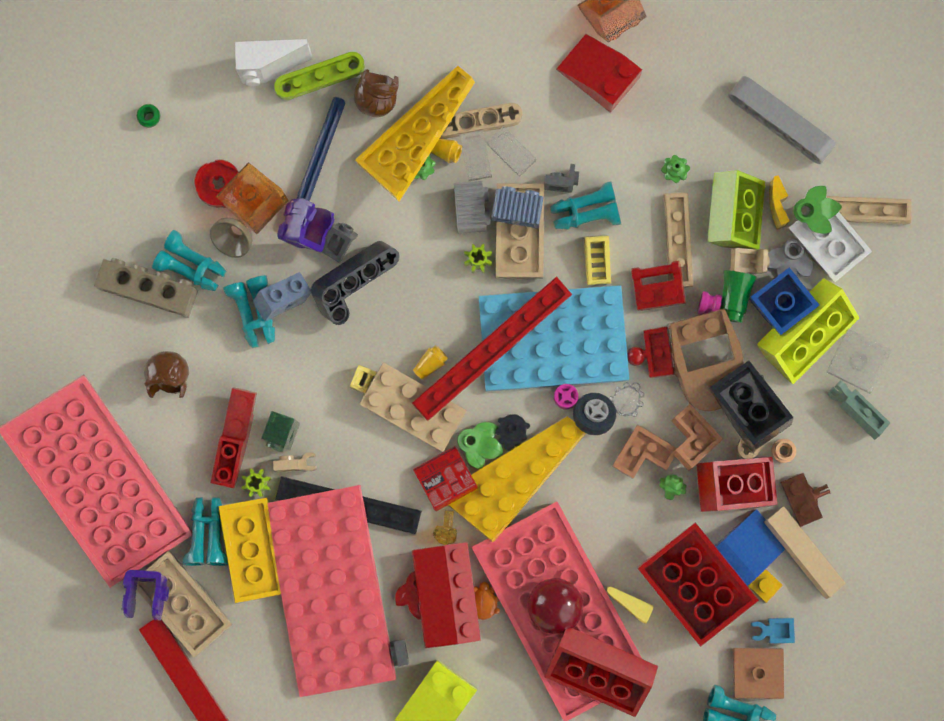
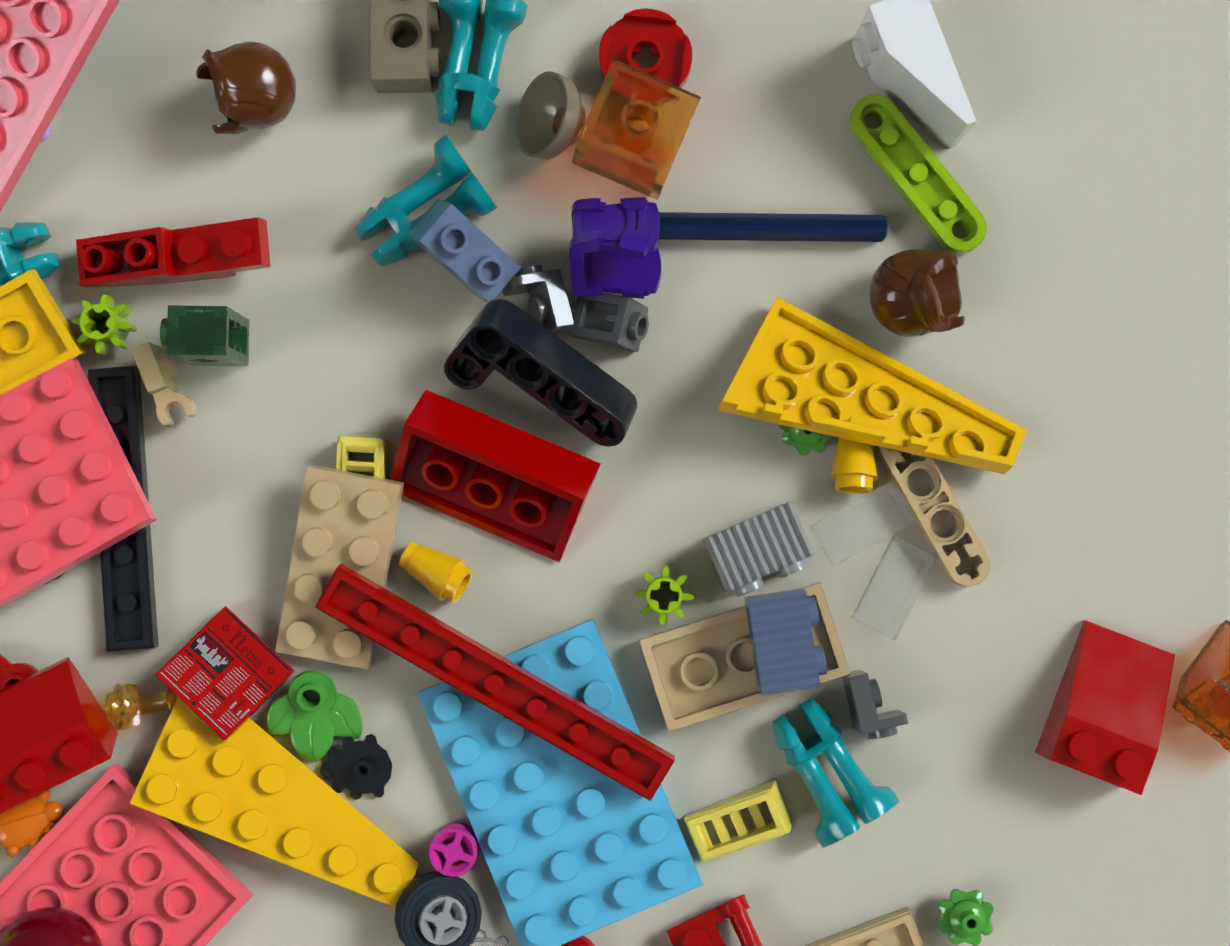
camera: 70 degrees right, 5 degrees up
(316, 266) = (547, 296): none -> dark grey bracket
(394, 319) = (492, 475): none -> red slope

